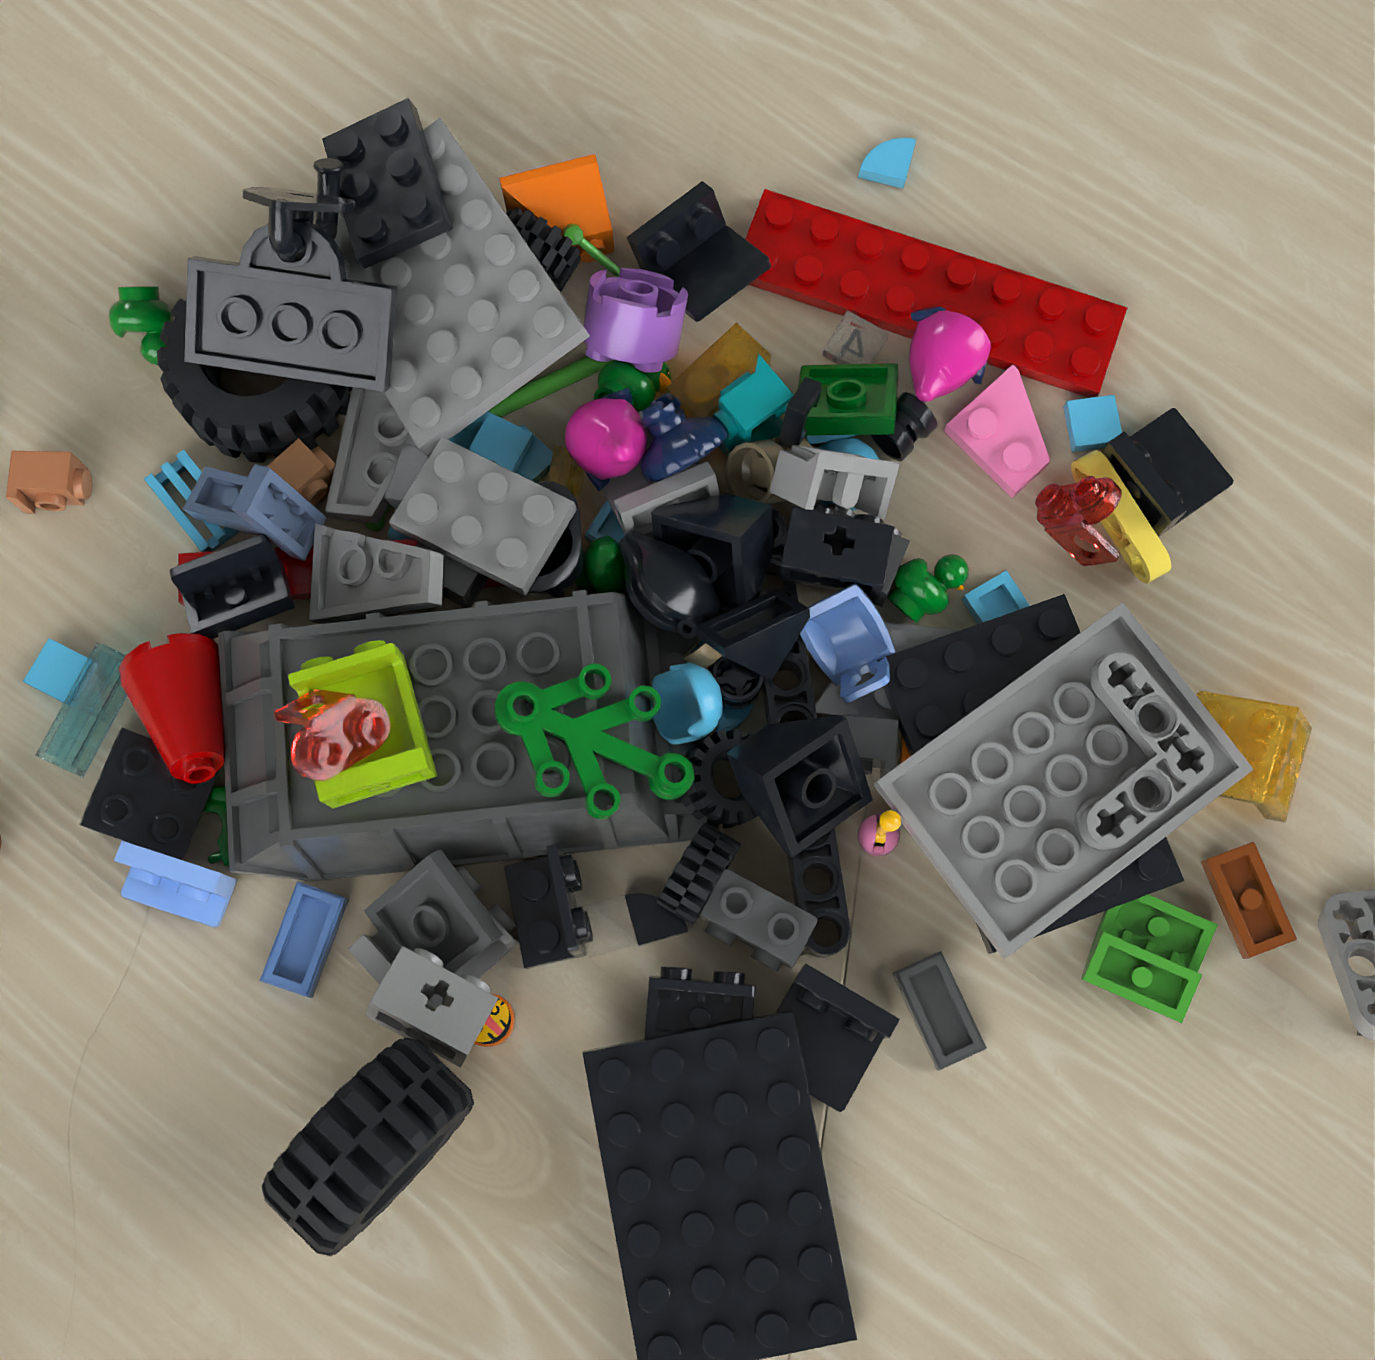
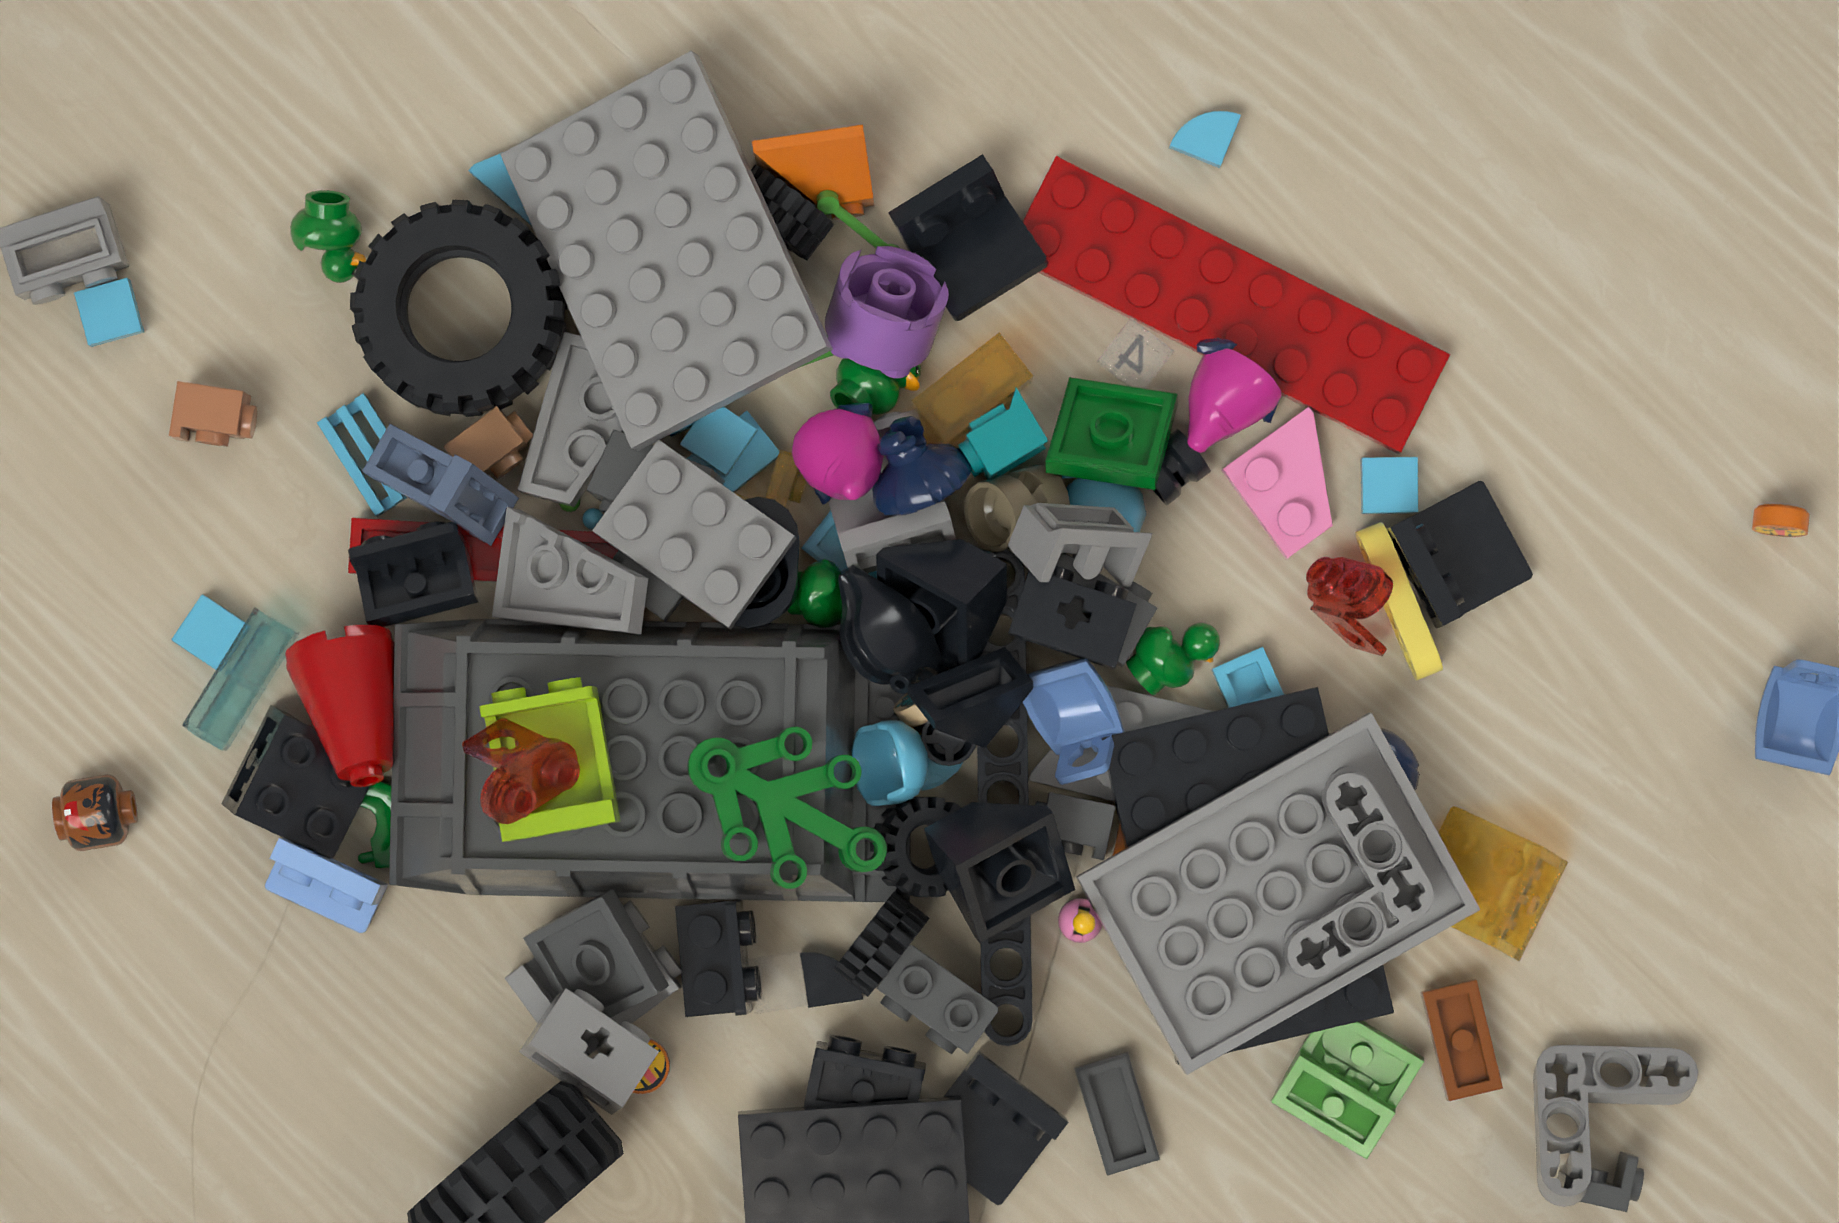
camera: 10 degrees right, 10 degrees up
(289, 297) = (508, 288): plate -> none
(304, 939) = (455, 957): medium blue tile -> none
(391, 182) = (624, 128): black plate -> none
(796, 412) = (1052, 457): black tile -> none

